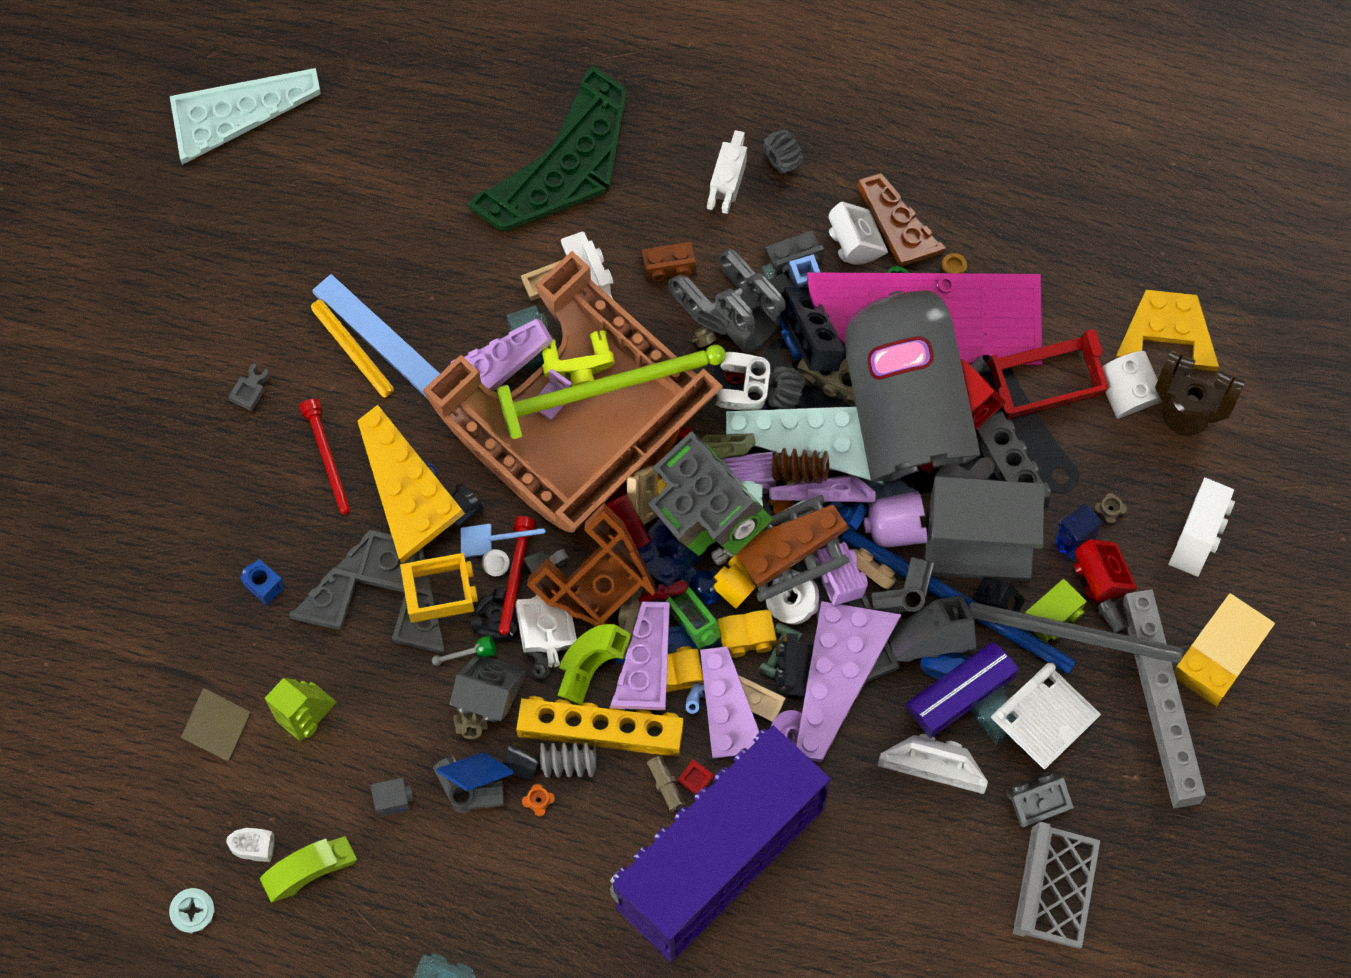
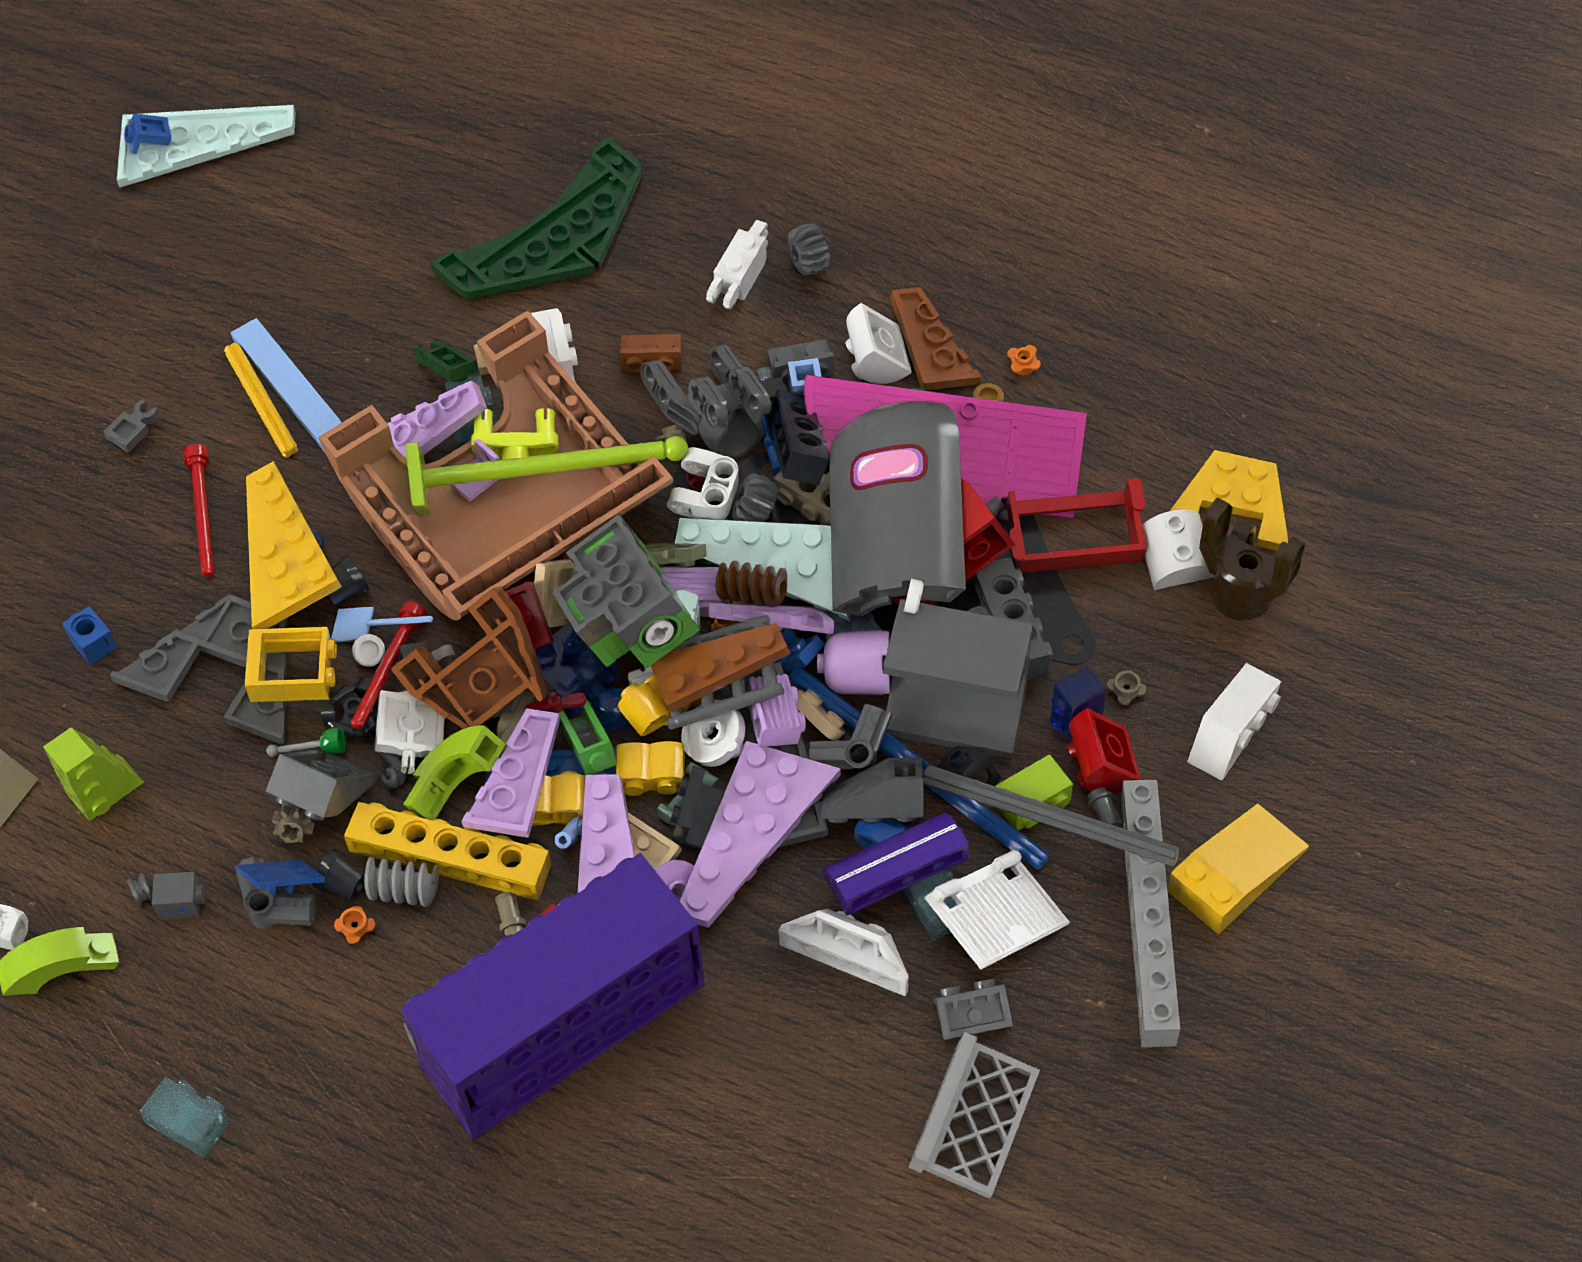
camera: 10 degrees right, 10 degrees down
(197, 111) = (147, 130): none -> blue bracket
(359, 796) = (140, 889): none -> dark grey bush
(503, 295) = (446, 361): none -> dark green hinge
(947, 475) = (913, 596): none -> white tile
(977, 234) = (1022, 366): none -> orange plate

